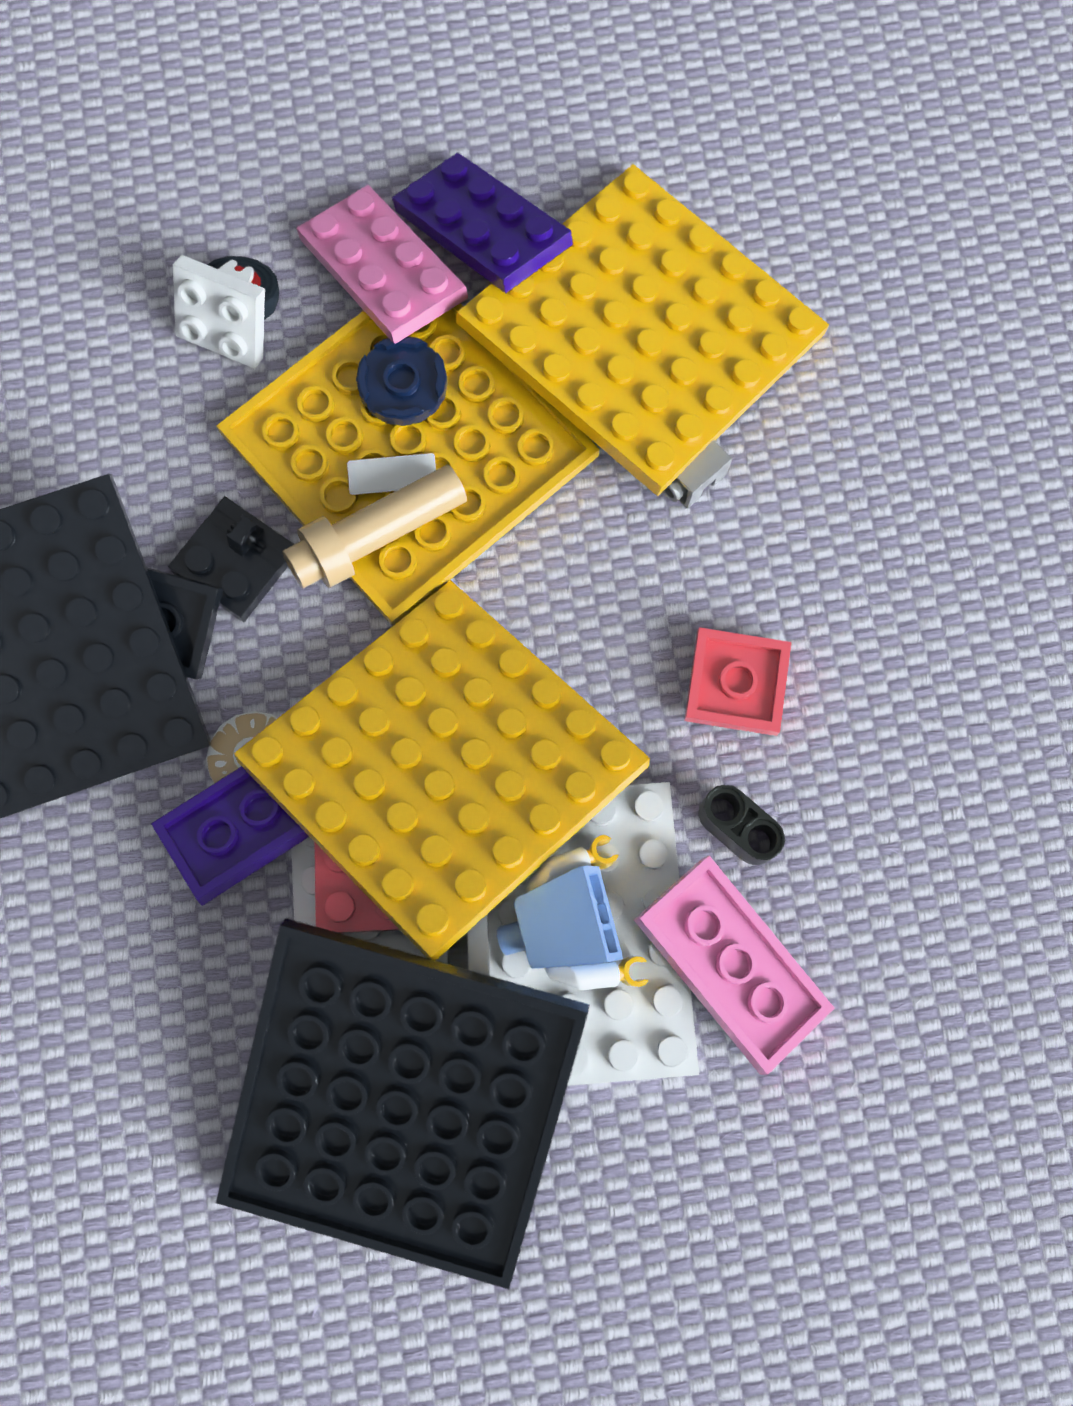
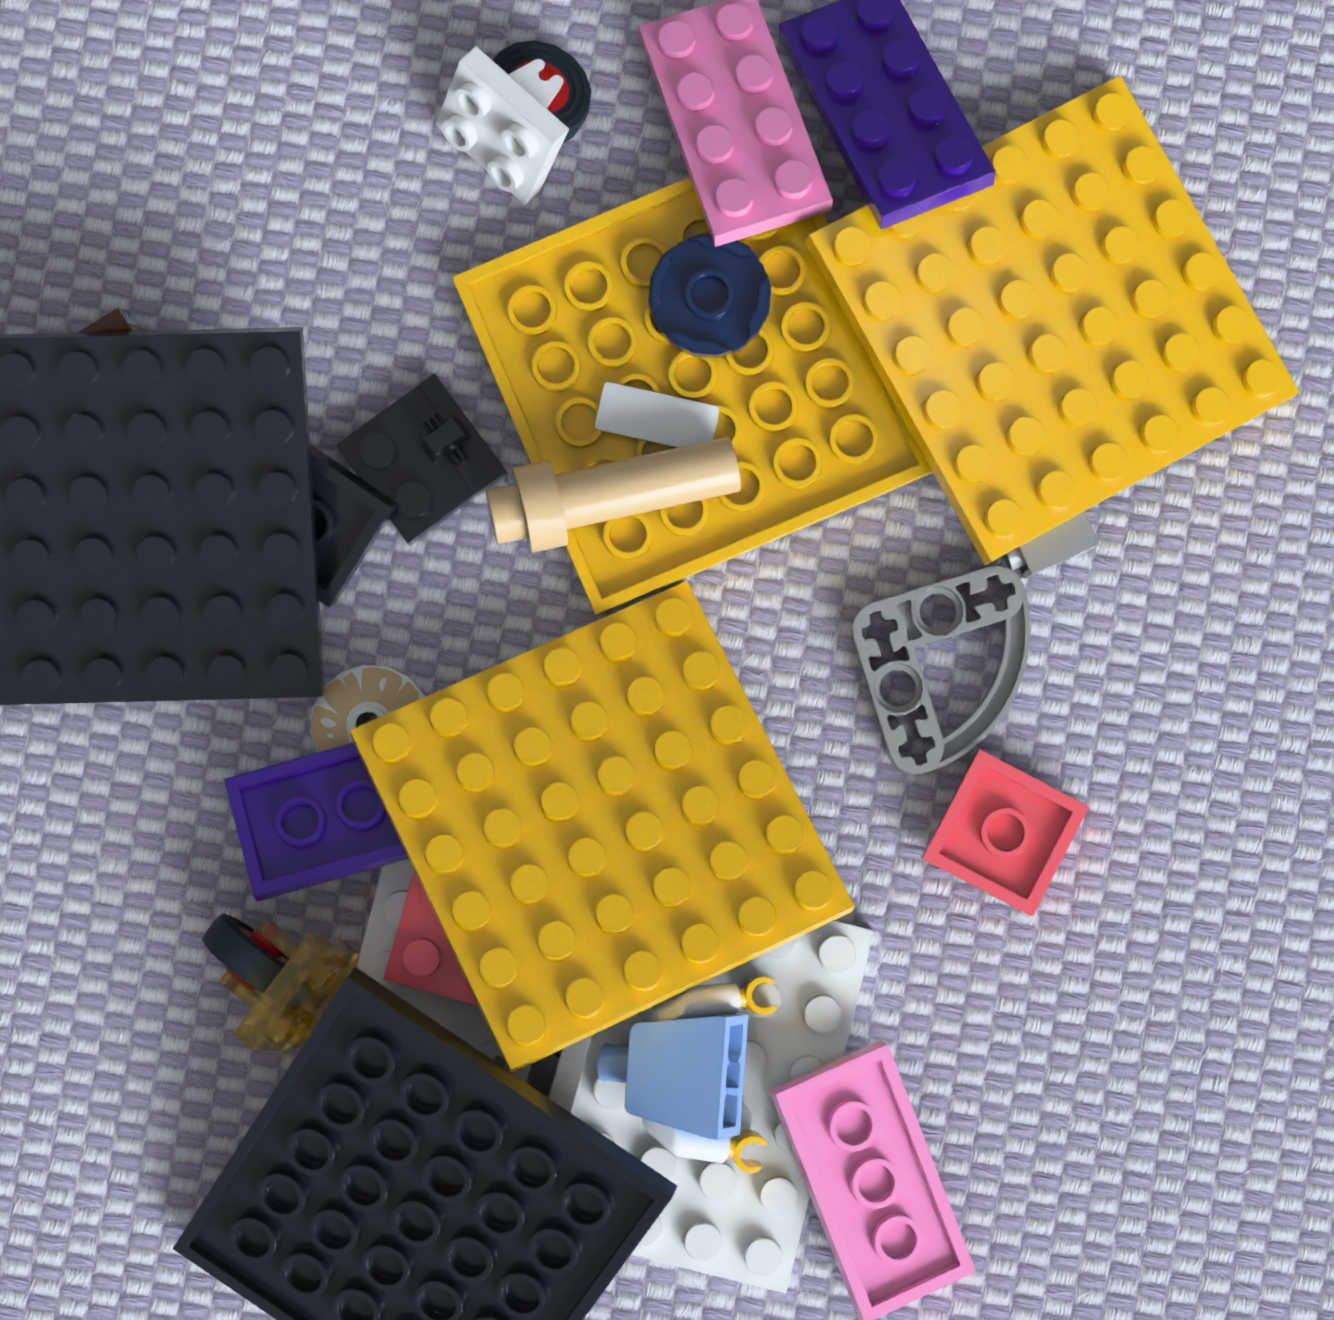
camera: 20 degrees right, 10 degrees up
(232, 960) = (278, 978): none -> clear yellow plate
(623, 567) = (913, 633): none -> light grey beam
(746, 817) = (946, 1012): pearl dark grey beam -> none

